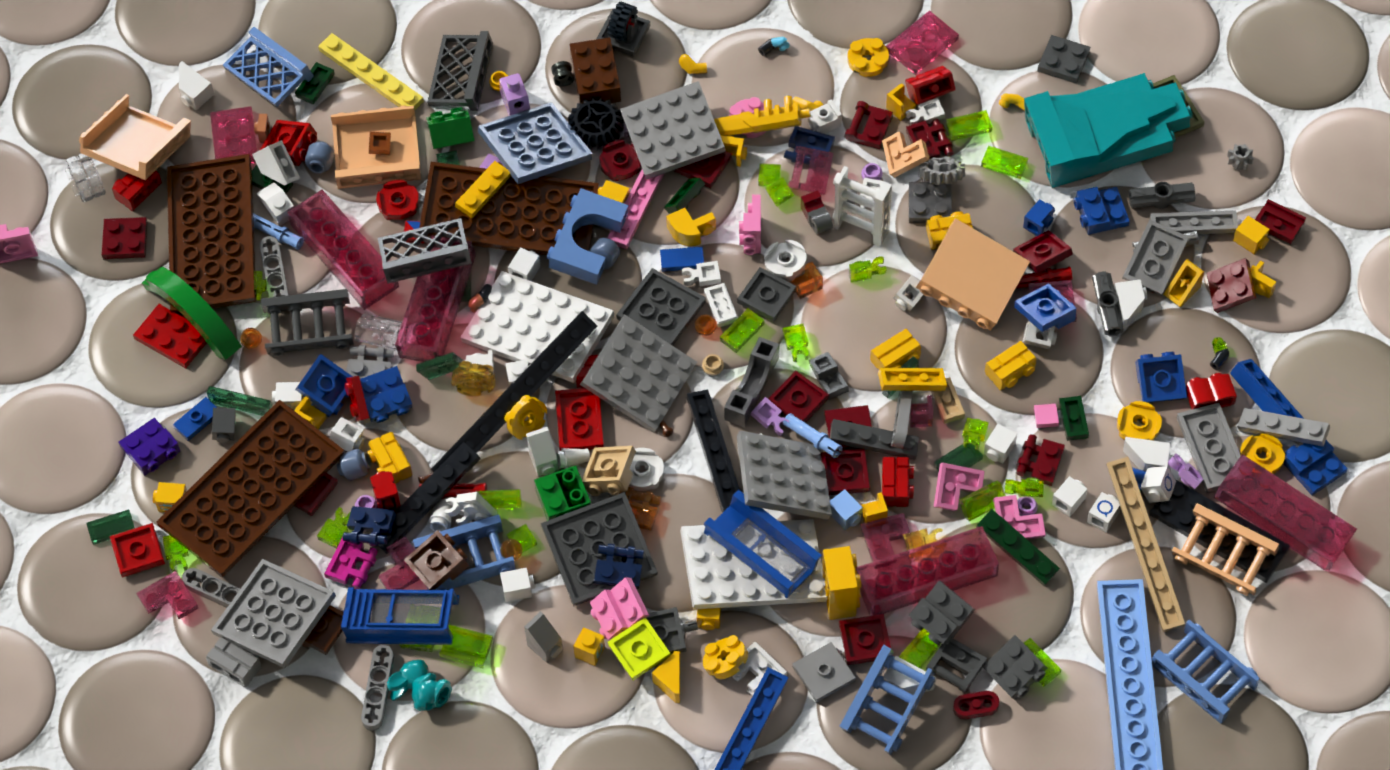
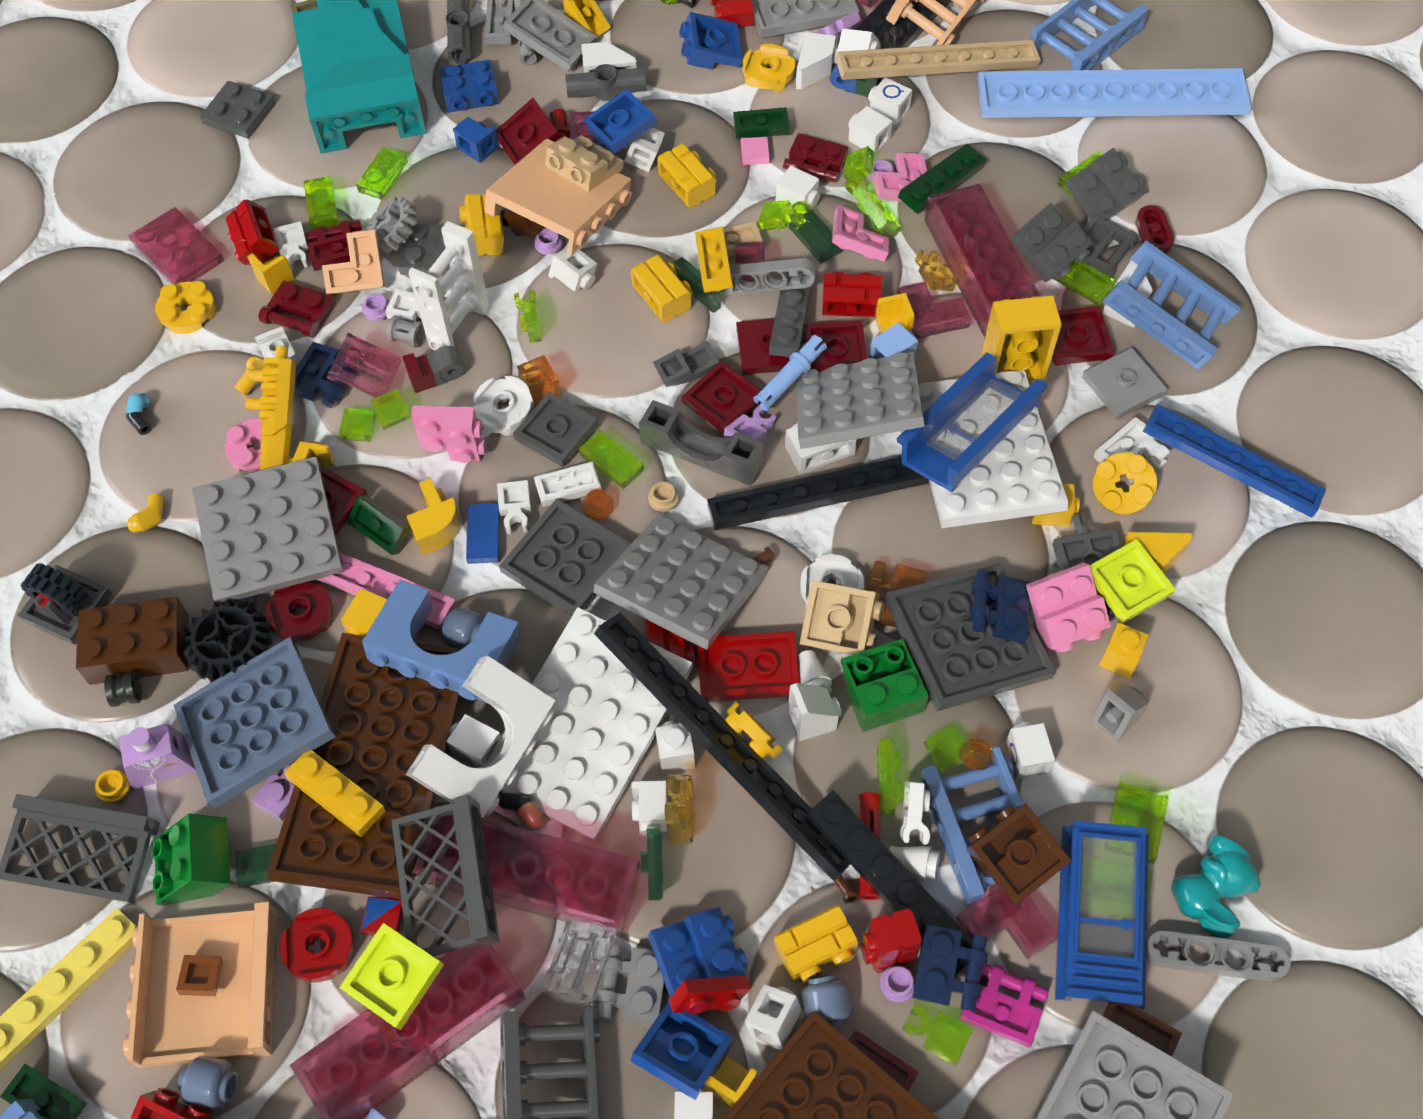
camera: 90 degrees left, 0 degrees up
(366, 228) = (391, 976): none -> neon yellow plate
(535, 280) = (522, 711): none -> white arch
(796, 339) = (630, 397): clear neon green plate -> none
(1001, 285) = (582, 161): none -> tan plate
(1015, 99) = (291, 155): yellow arm -> none

